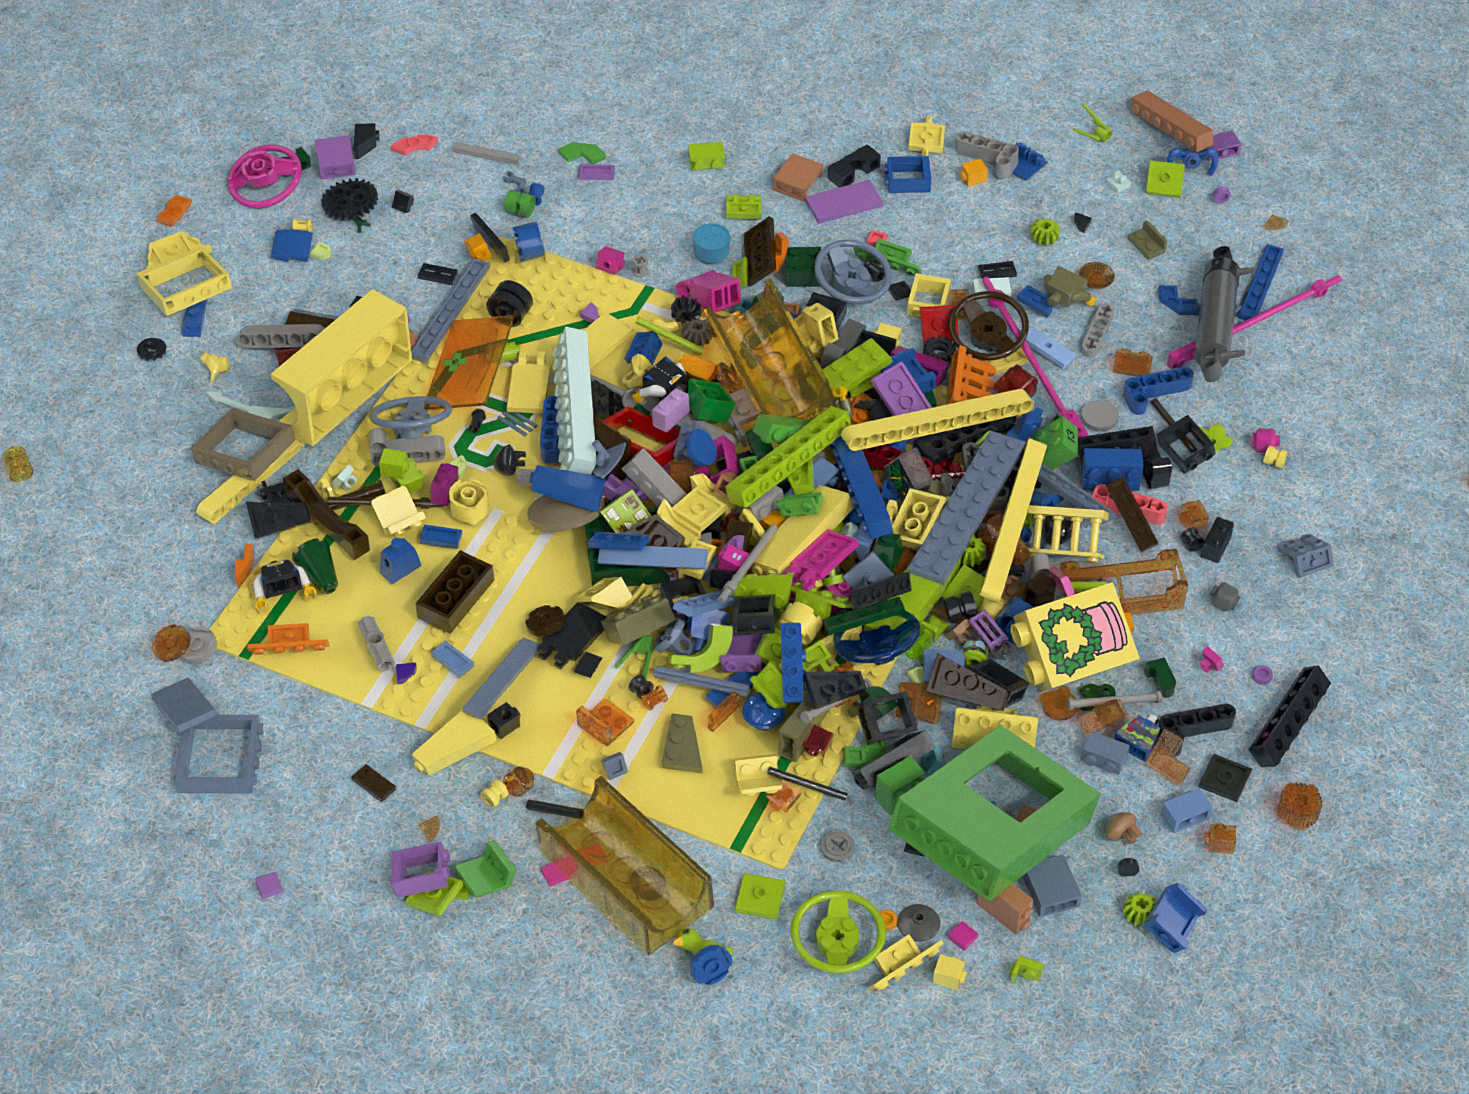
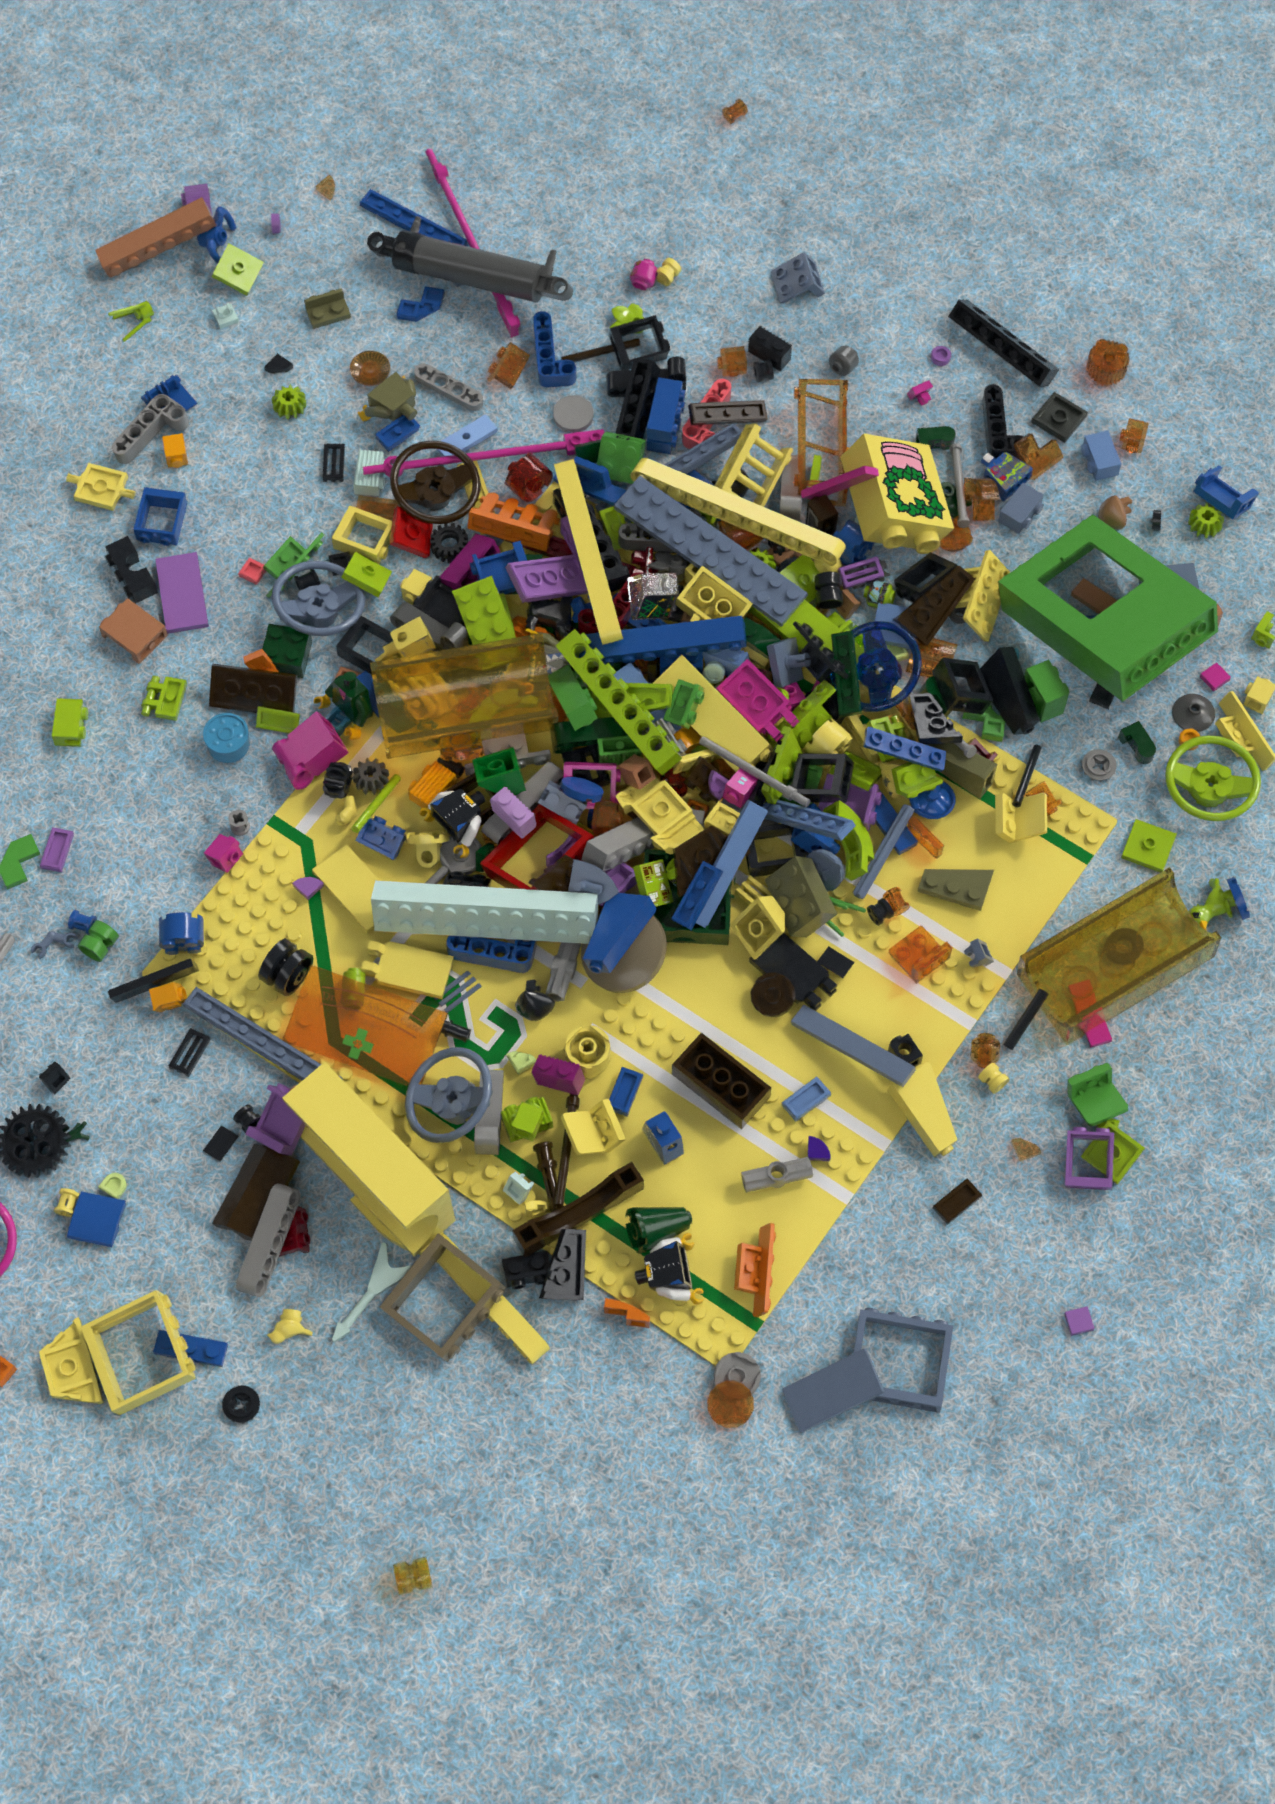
camera: 80 degrees left, 15 degrees up
(870, 875) = (1139, 742): none -> dark green leg
(887, 300) = (366, 574): none -> lime plate

